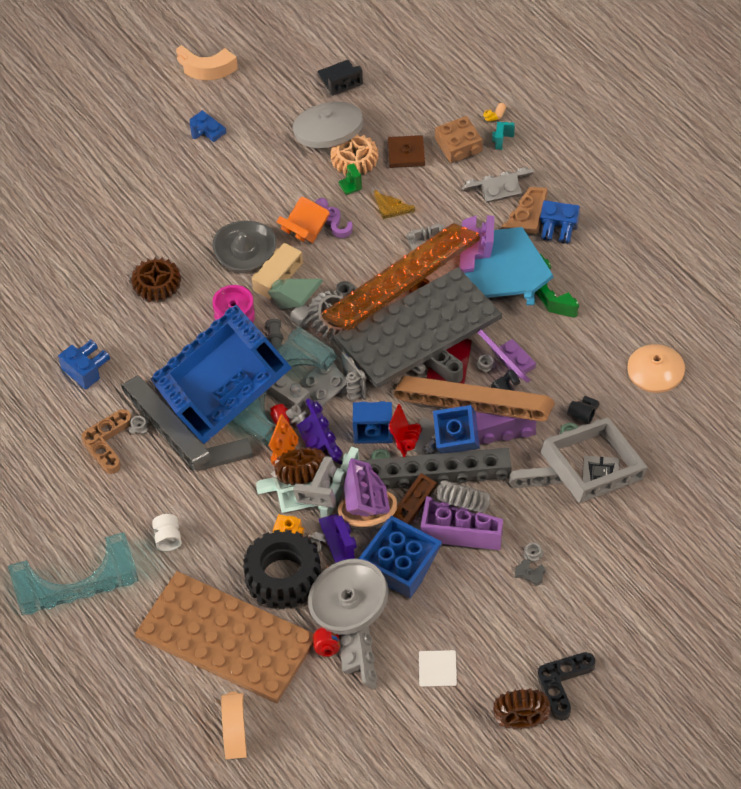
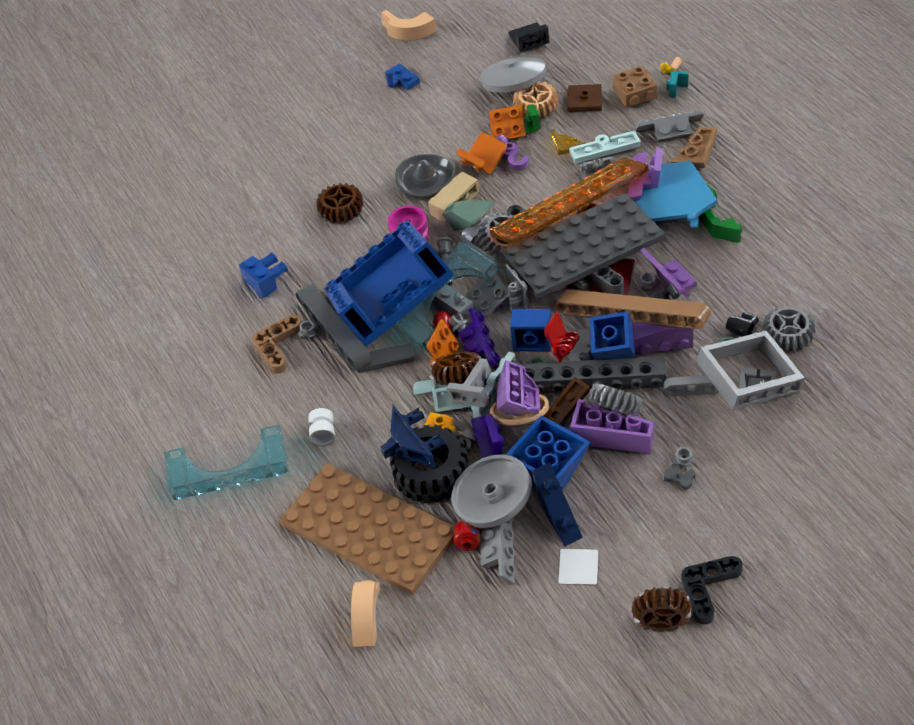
camera: 10 degrees right, 5 degrees down
(260, 549) = (406, 441): none -> dark blue connector
(326, 183) = (507, 122): none -> orange hinge
(412, 608) = (555, 504): none -> dark blue connector
(431, 210) = (603, 146): none -> light aqua hinge
(559, 215) = (727, 151): blue brick -> none
(629, 406) = (788, 323): none -> light grey gear
(656, 375) = (817, 289): light nougat dish -> none

